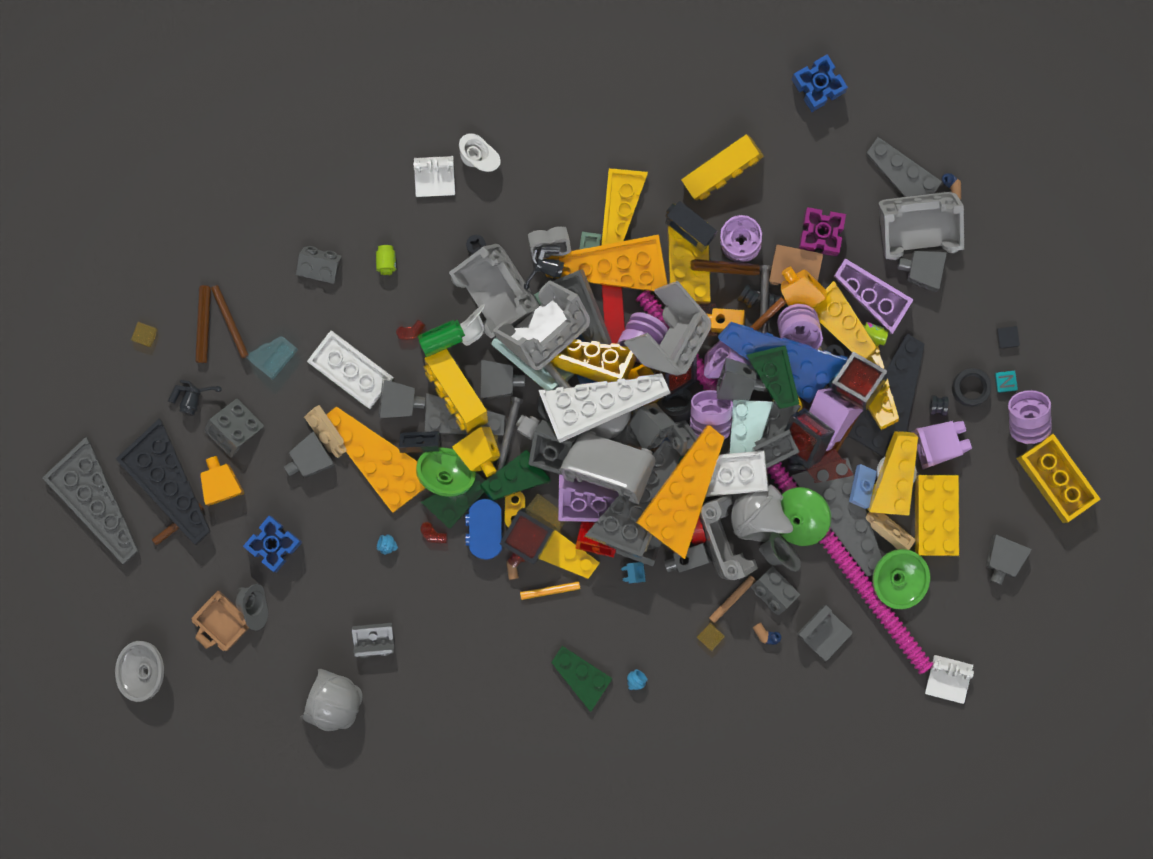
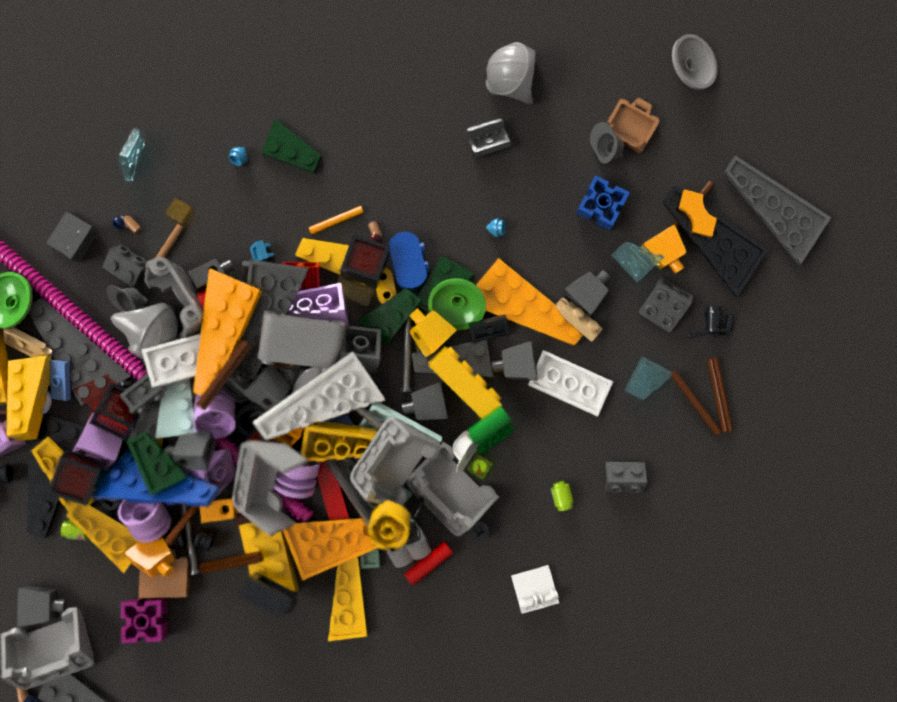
camera: 165 degrees right, 0 degrees up
(144, 334) = (772, 372): clear yellow tile -> none
(181, 519) = (701, 220): none -> light orange tile
(253, 478) = (636, 260): none -> clear light blue wing
(410, 333) = (522, 430): clear red arm -> none
(431, 535) = (456, 245): clear red arm -> none
(461, 307) = (479, 466): none -> clear neon green tile
(478, 153) = (497, 621): white piece -> none
(527, 426) = (389, 366): light grey plate -> none
(533, 223) = (428, 563): none -> red piece
(560, 265) = (389, 525): none -> yellow brick
(689, 445) = (223, 375): none -> reddish brown axle
(722, 167) = (251, 666): yellow wedge -> none
(745, 228) = (215, 604): lavender wheel -> none
(747, 703) = (130, 154): none -> clear light blue wing
(811, 511) = (101, 344): bright green dish -> none
(876, 296) = (78, 566): lavender wedge -> none

